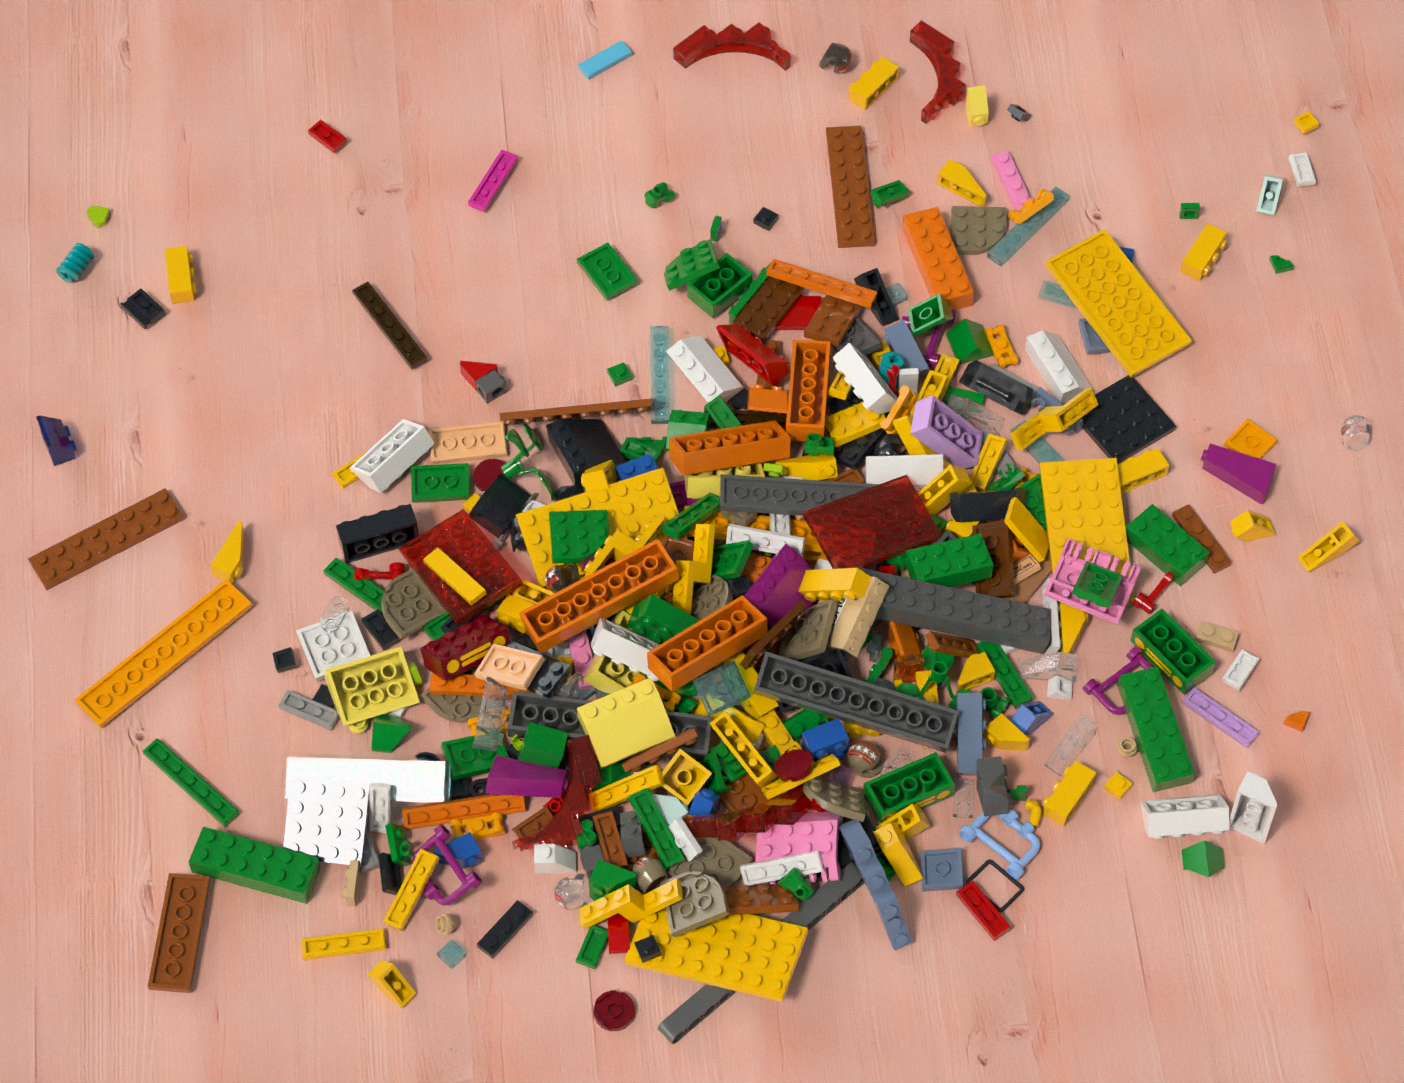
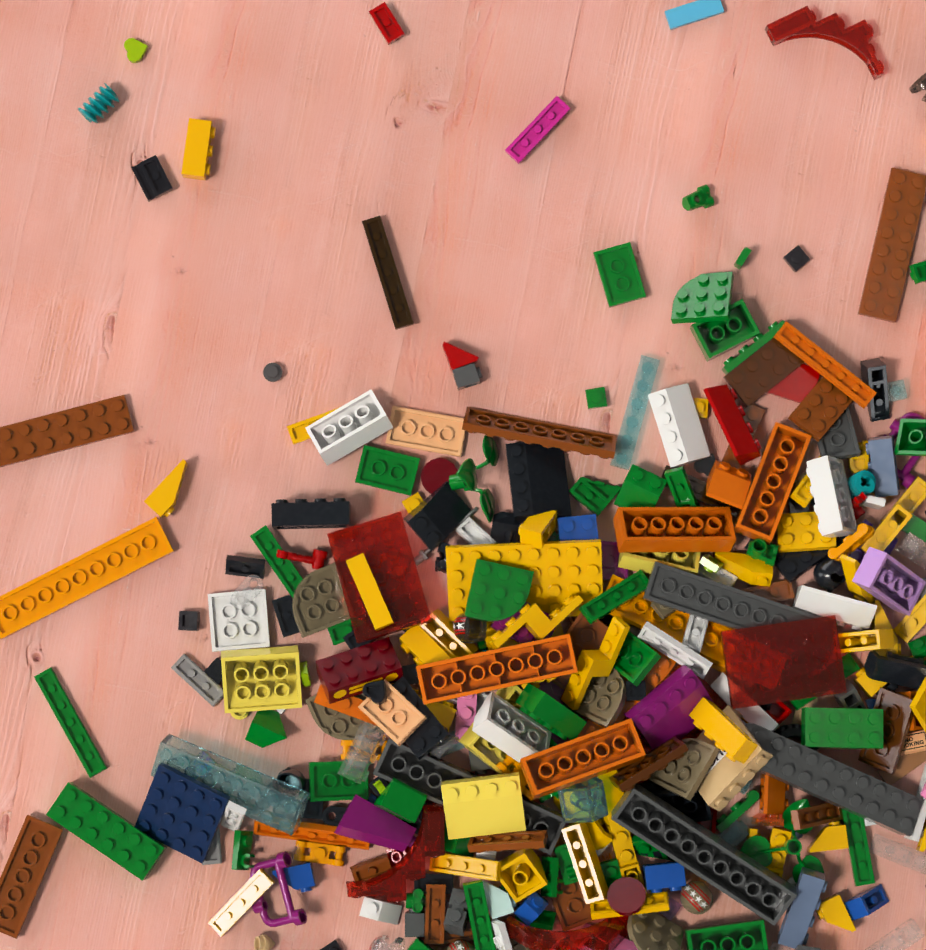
camera: 15 degrees right, 25 degrees up
(56, 439) = (32, 310): clear blue slope -> none
(304, 433) = (272, 372): none -> dark grey plate
(320, 598) = (245, 566): none -> black plate
(343, 944) = (166, 932): yellow tile -> none
(352, 875) = (186, 884): tan plate -> none
(390, 874) = (226, 879): black plate -> none
(487, 653) = (375, 691): none -> black tile
(896, 761) = (725, 910): clear plate -> none
(994, 703) = (838, 878): green plate -> none
(1059, 688) = (904, 877): white slope -> none

